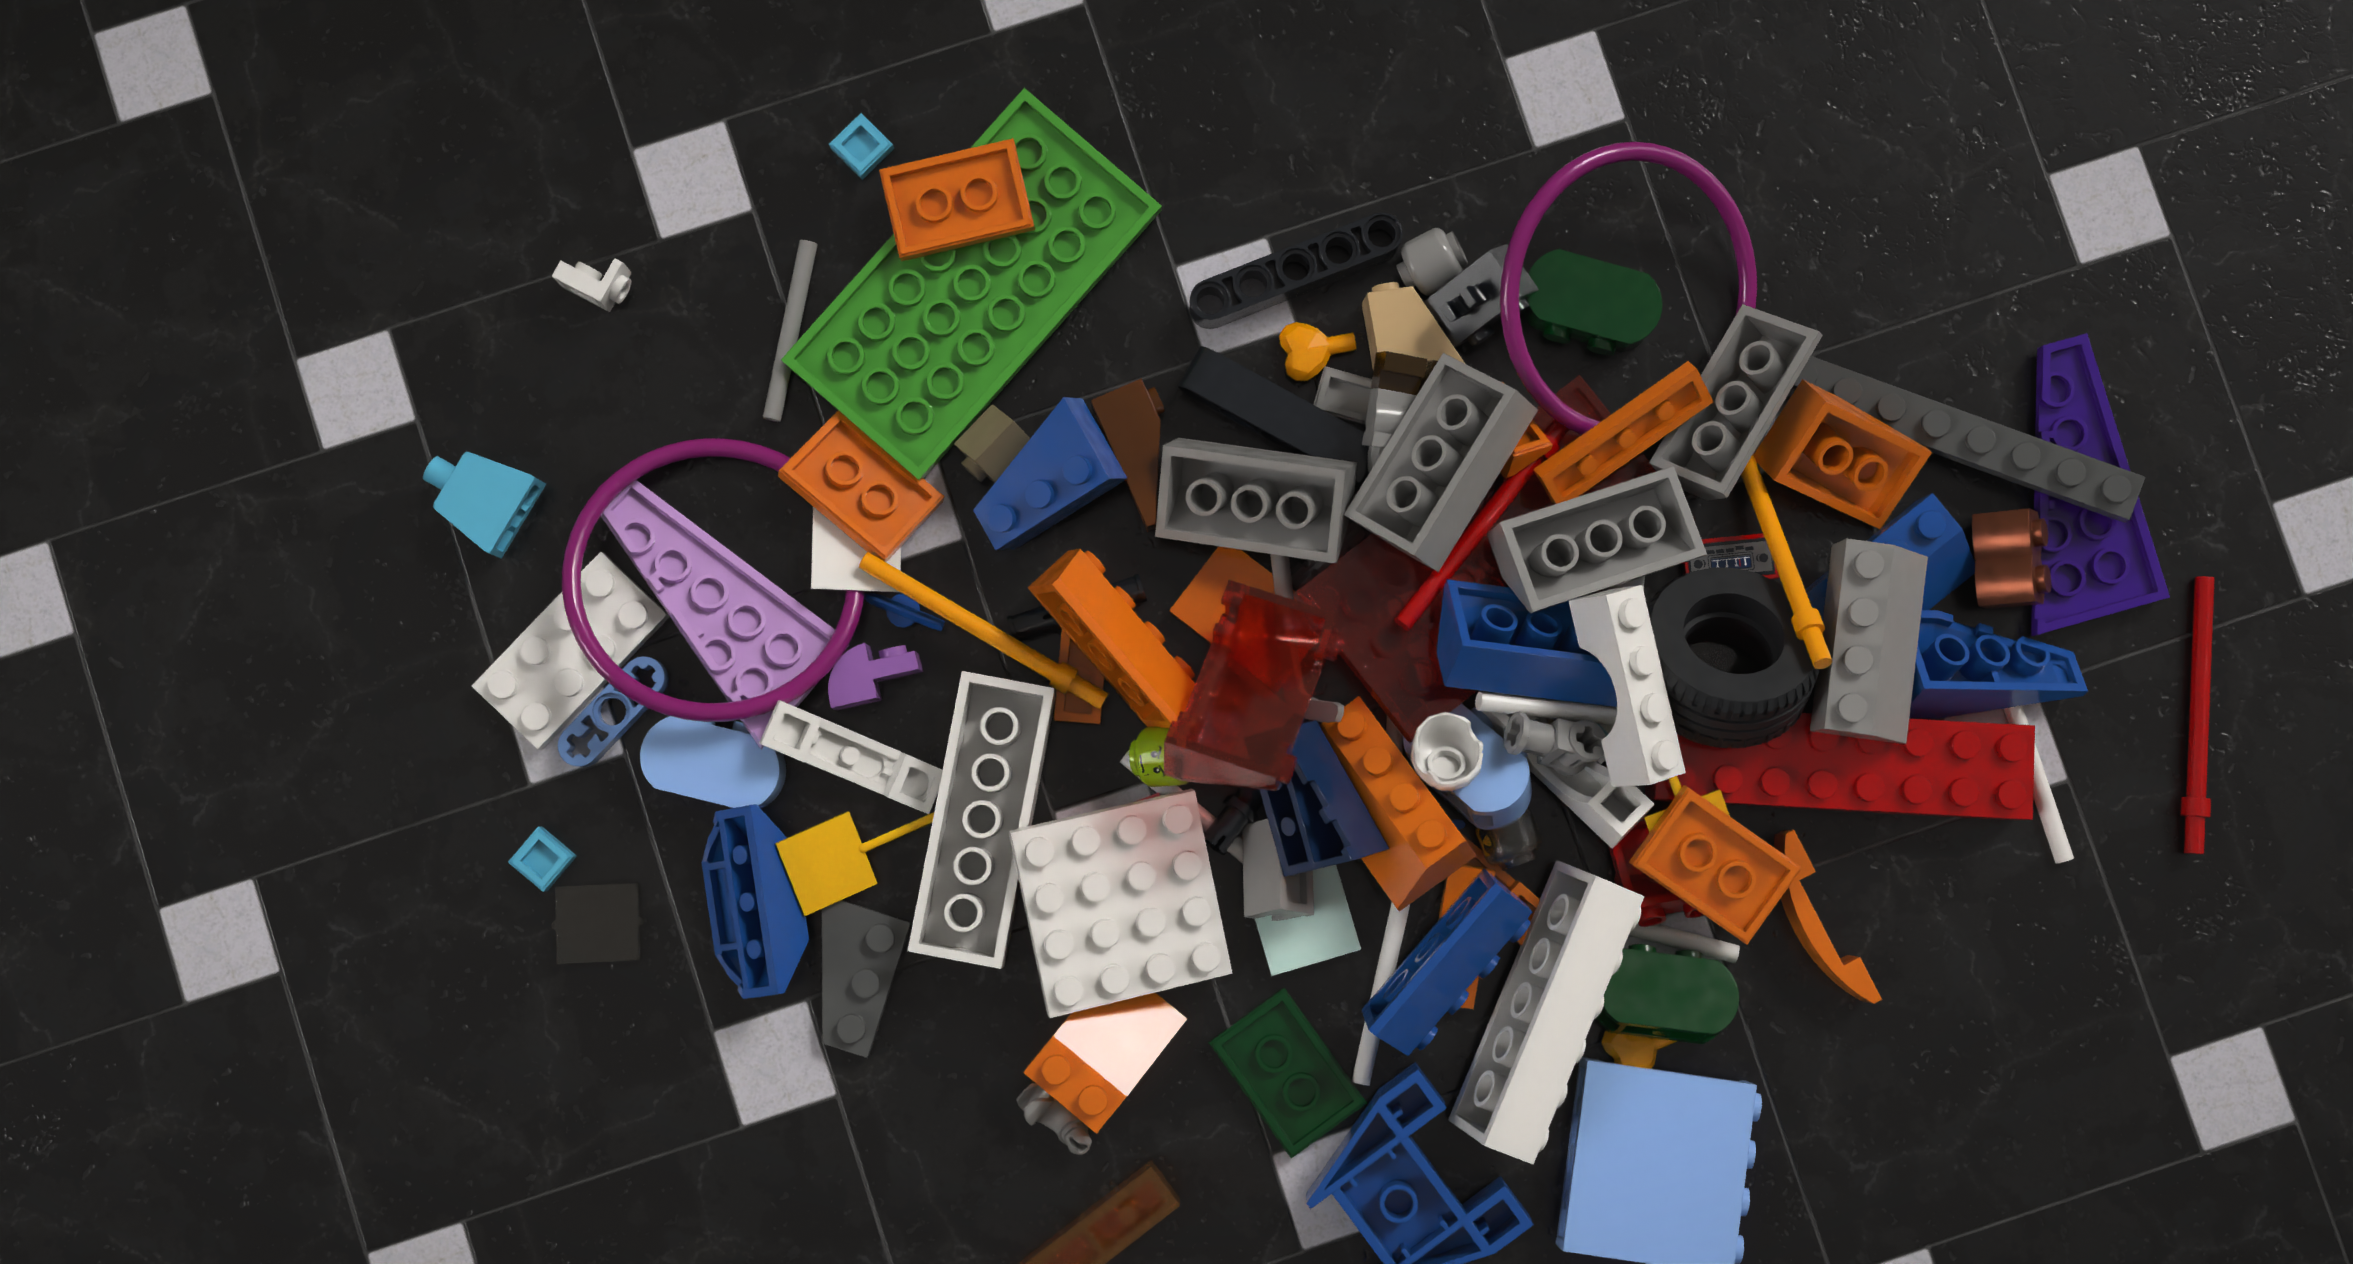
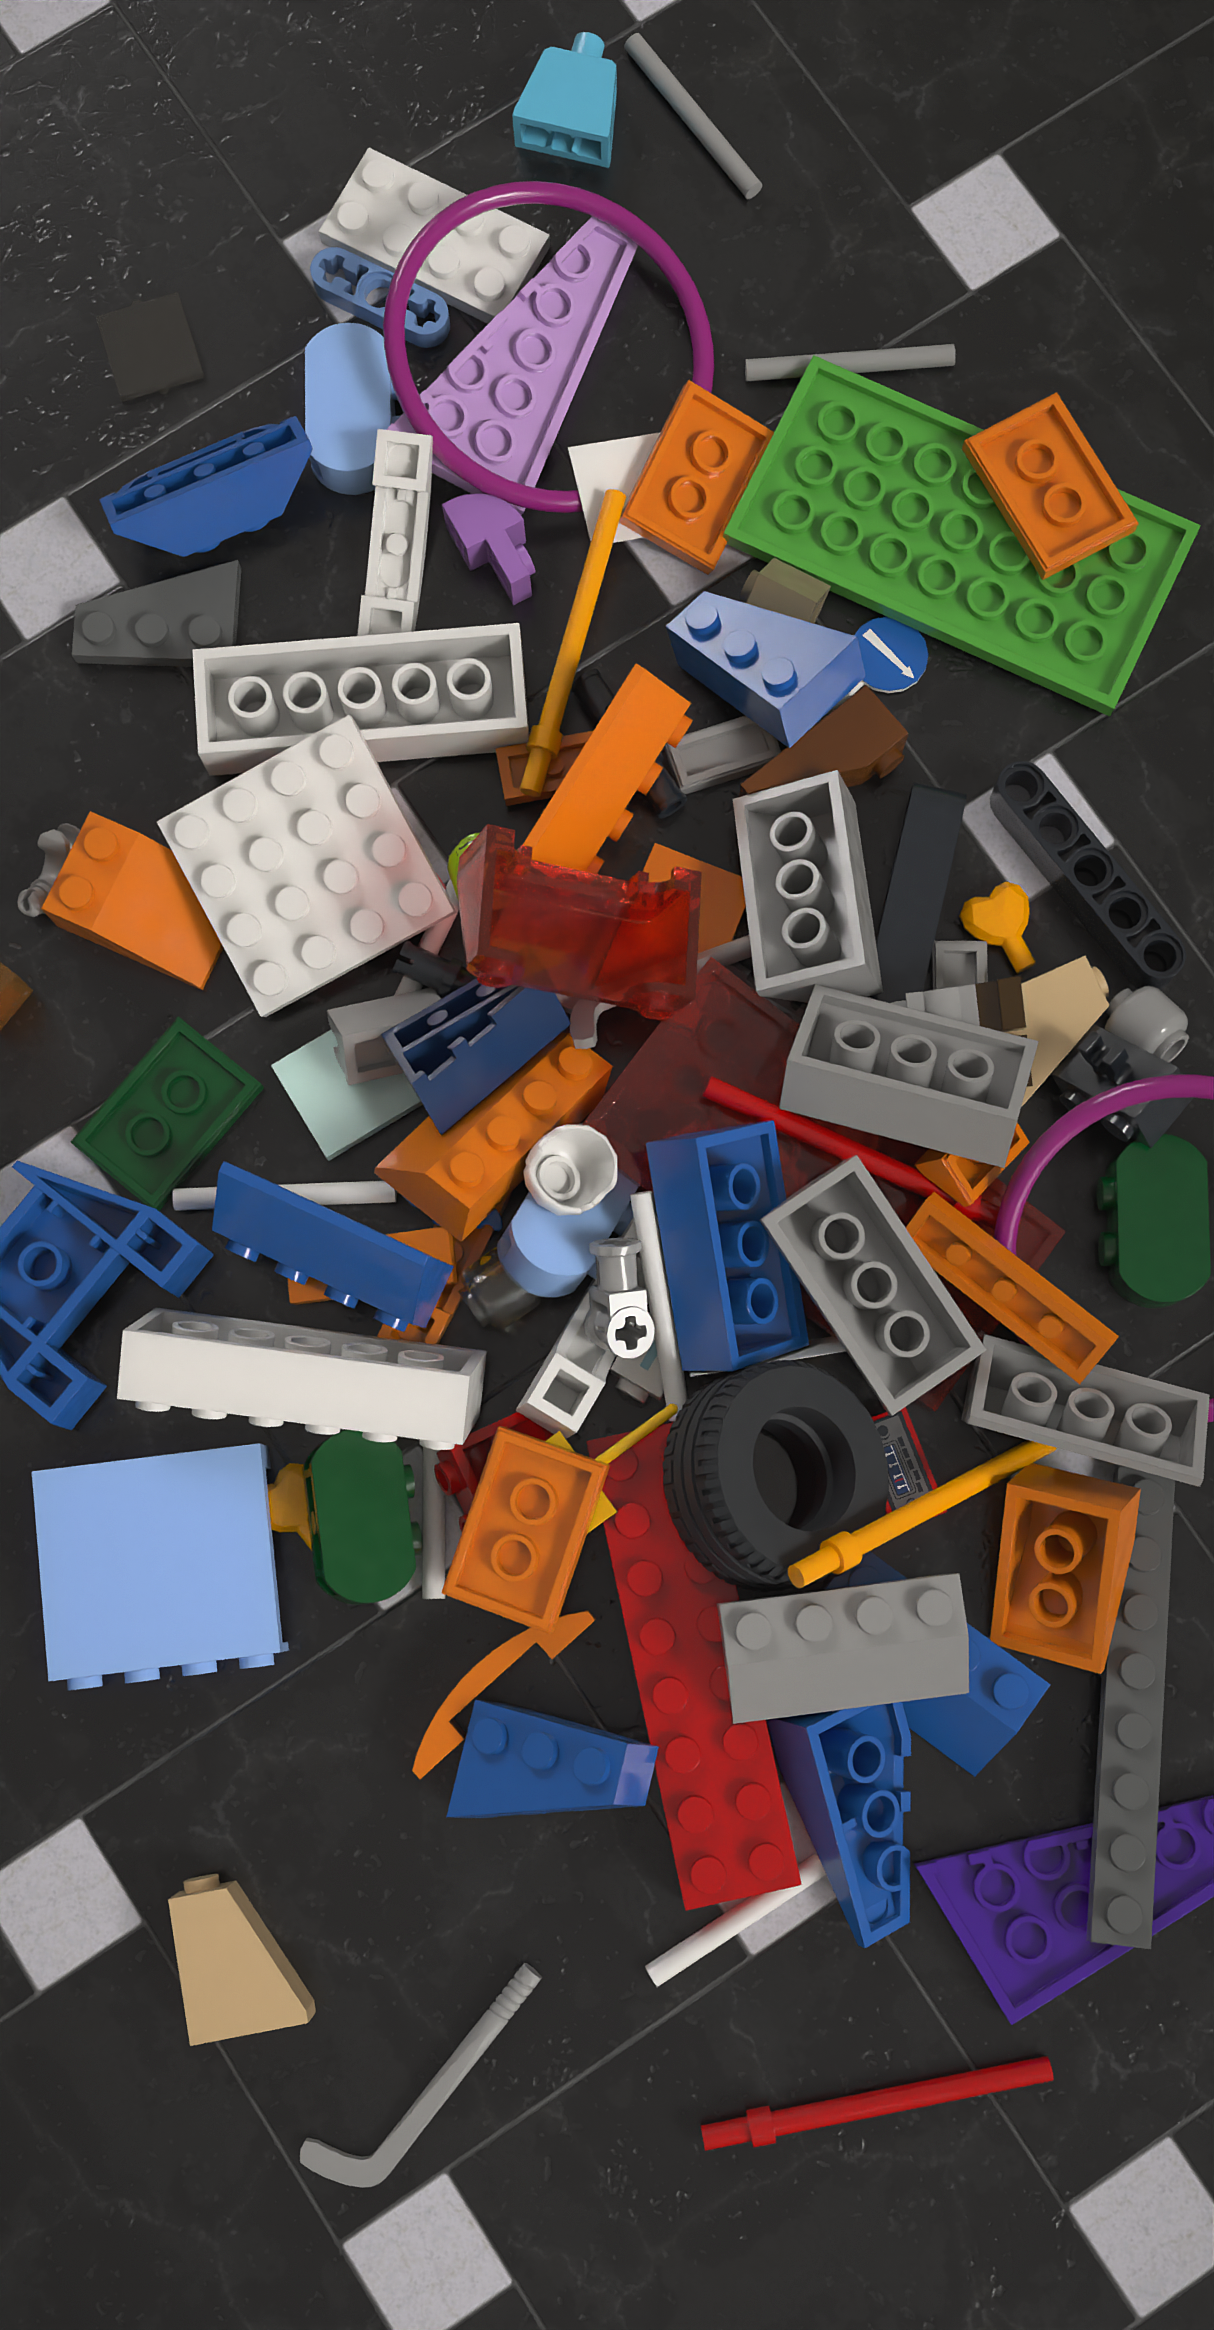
camera: 80 degrees right, 5 degrees down
(521, 398) = (693, 116): none -> light grey bar
(542, 859) = (204, 271): medium azure tile -> none
(586, 282) = (837, 158): white bracket -> none
(832, 862) = (274, 554): yellow piece -> none
(861, 146) = (1079, 379): medium azure tile -> none
(904, 611) = (571, 561): blue piece -> none
(1056, 372) = (891, 657): none -> blue piece
(1106, 532) = (720, 754): none -> light grey tile
(1620, 634) = (652, 1388): white arch -> none
(1897, 897) = (545, 1764): none -> blue wedge
(1982, 1183) = (231, 1965): none -> tan slope
(2010, 558) = (999, 1806): copper brick -> none
(2154, 1108) = (373, 2169): none -> light grey piece

